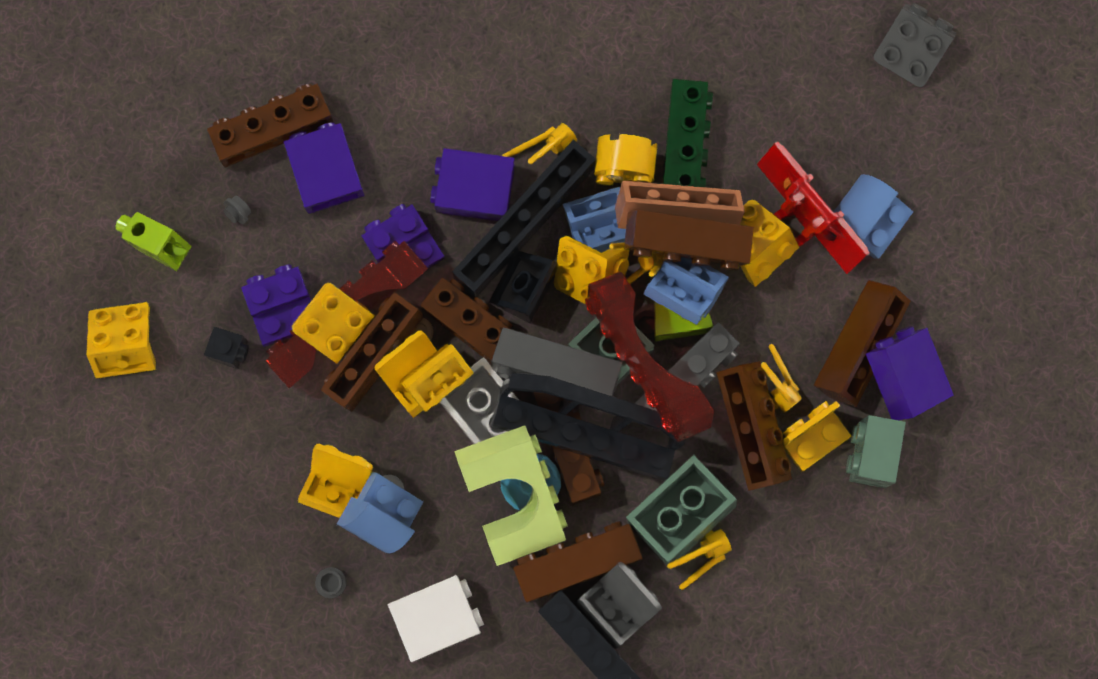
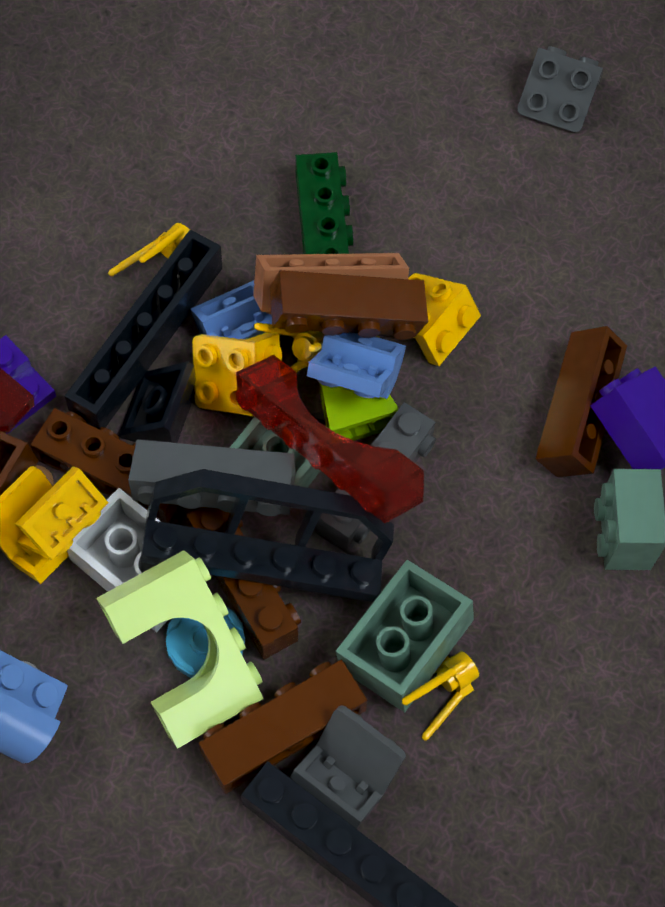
camera: 15 degrees left, 15 degrees down
(436, 618) = (105, 834): white brick -> none
(473, 184) = (76, 304): dark purple brick -> none
(625, 159) = (256, 233): yellow brick -> none
(754, 425) = (475, 516): reddish brown brick -> none
(784, 393) = (502, 477): yellow plant -> none
(811, 209) = (487, 265): red piece -> none
(816, 438) = (550, 517): yellow bracket -> none
(874, 213) = (555, 265): medium blue brick -> none

